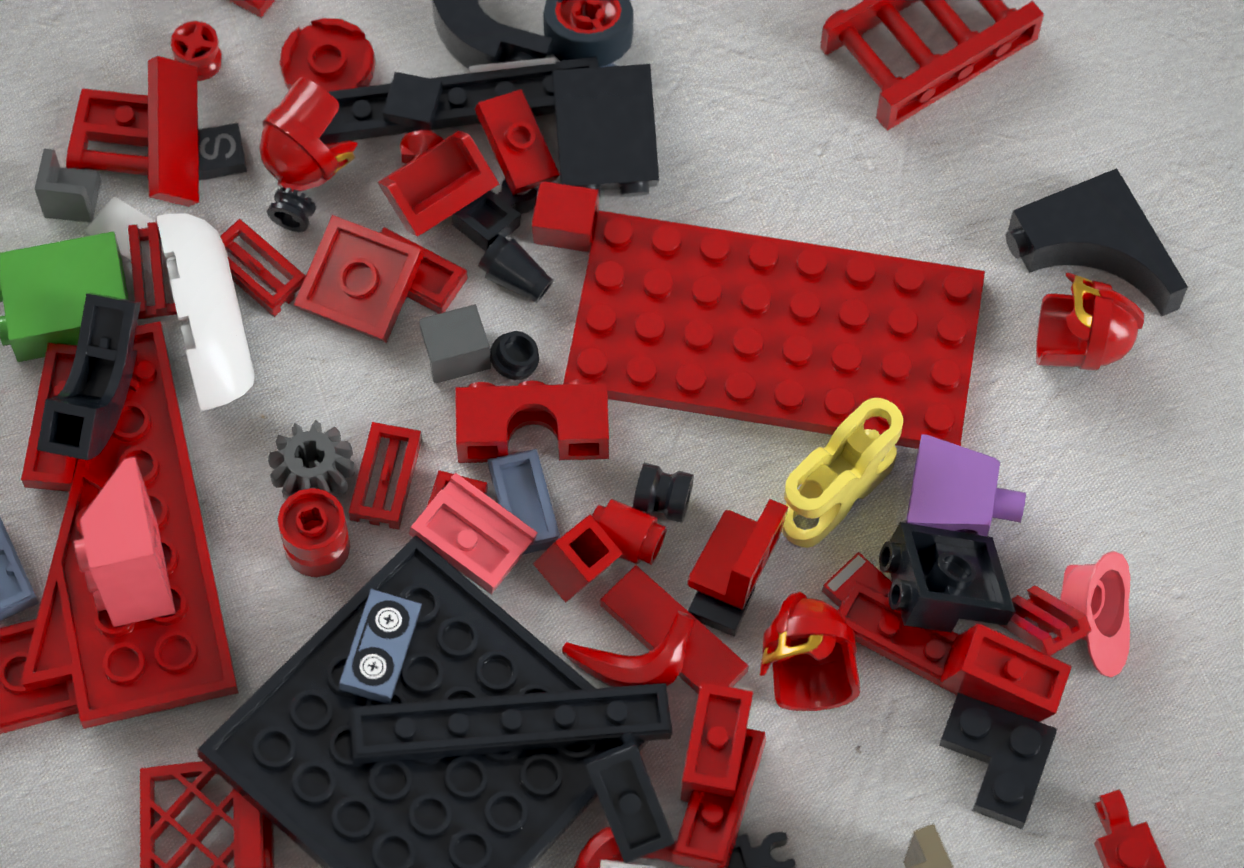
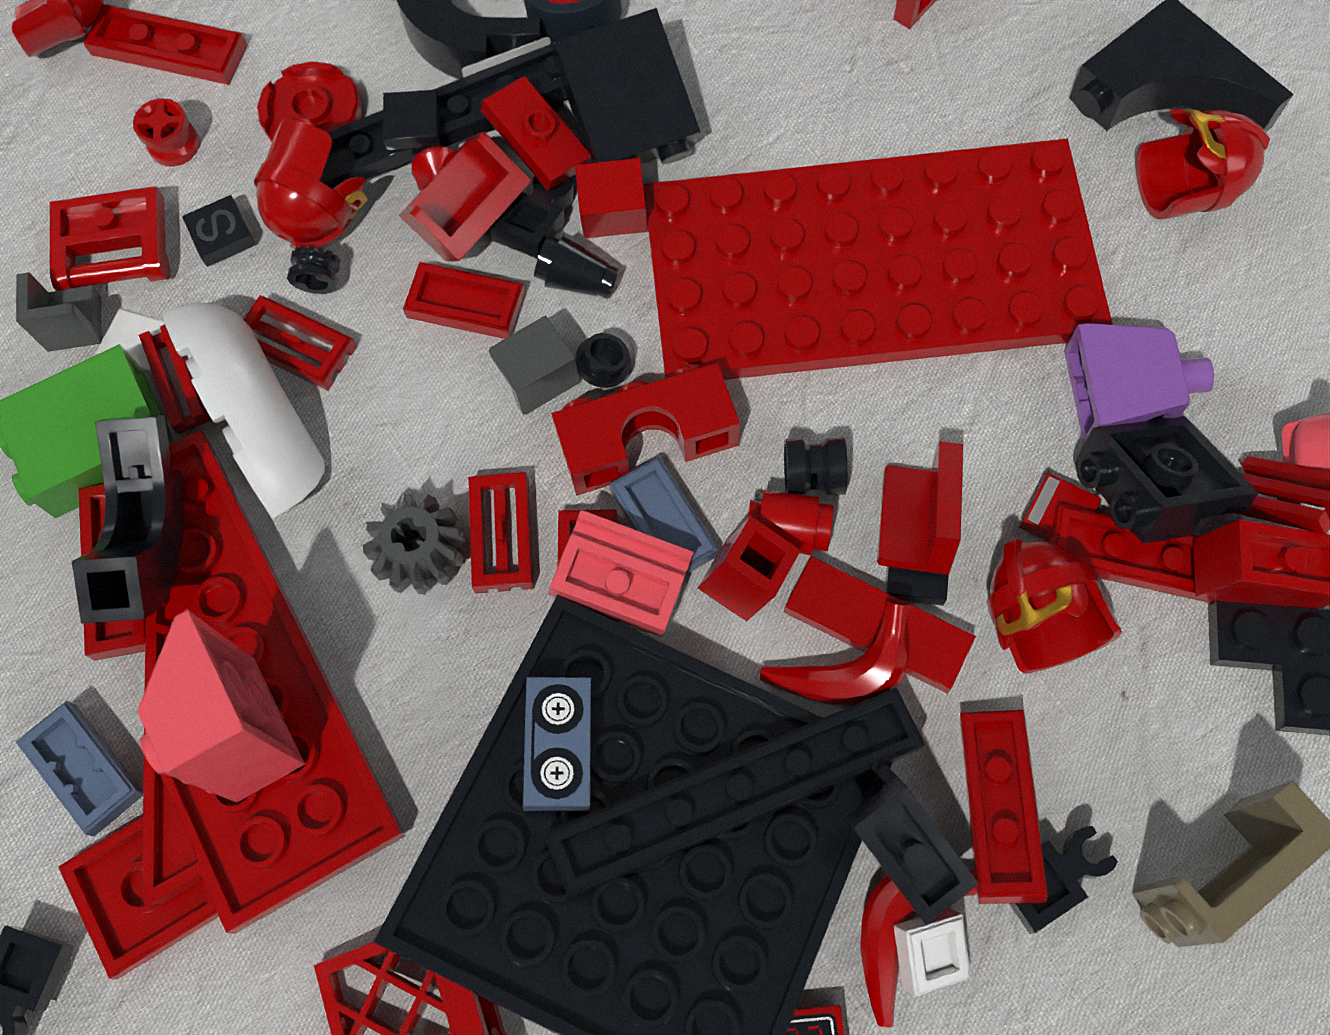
camera: 10 degrees left, 5 degrees up
(173, 131) = (159, 220): red tile -> none
(314, 532) = (446, 635): red wheel -> none
(359, 278) = (408, 323): red tile -> none
(716, 740) = (978, 742): red panel -> none
(841, 472) = (1011, 385): light yellow piece -> none

